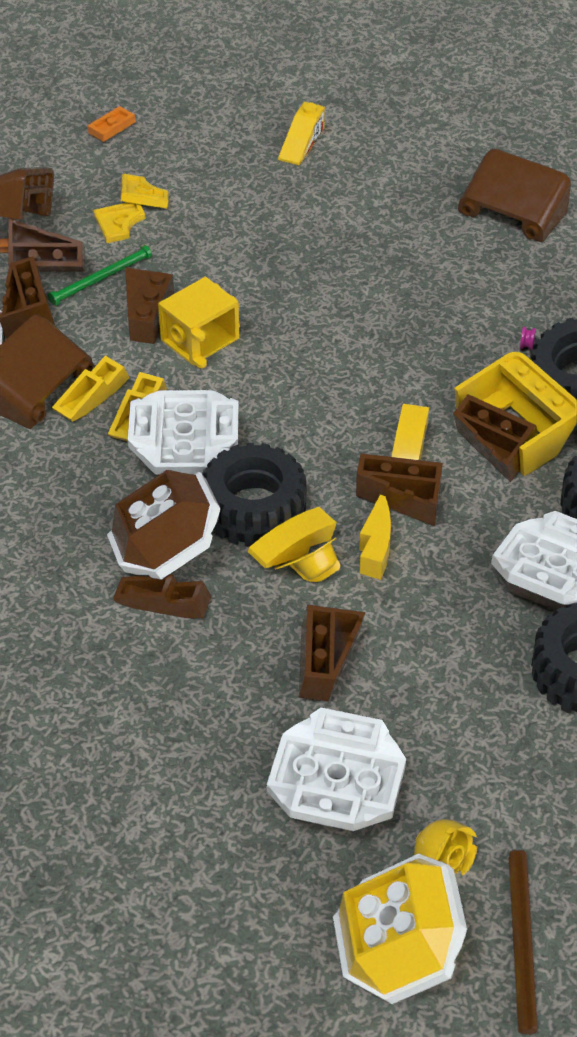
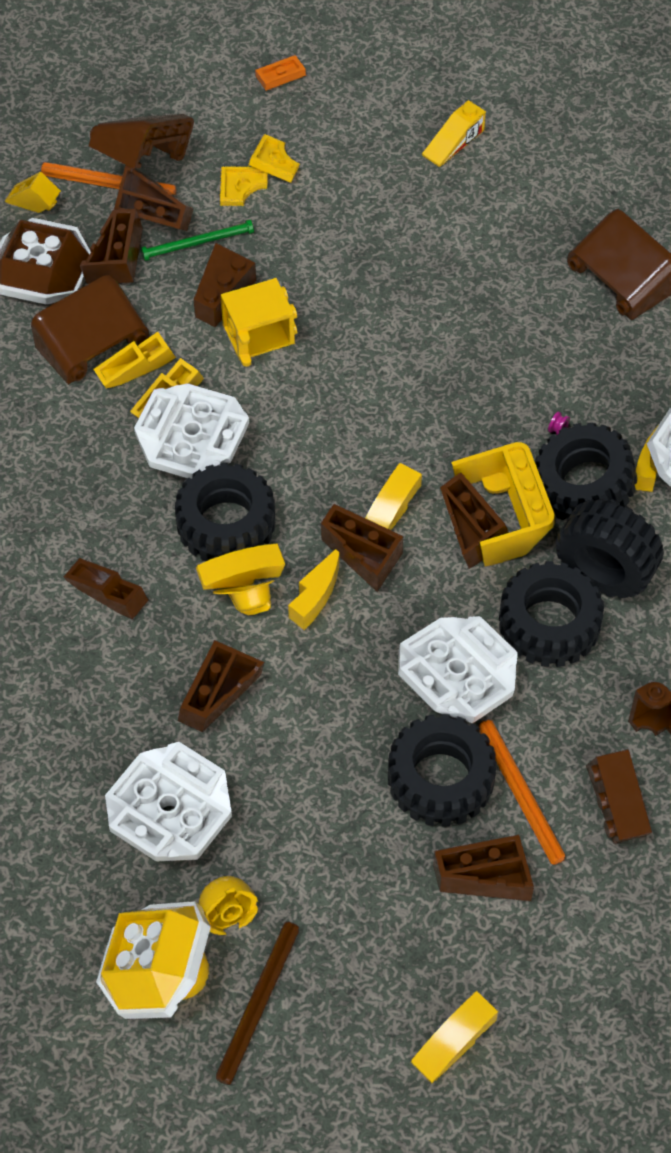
camera: 20 degrees right, 10 degrees up
(164, 524) = (129, 522): reddish brown piece -> none

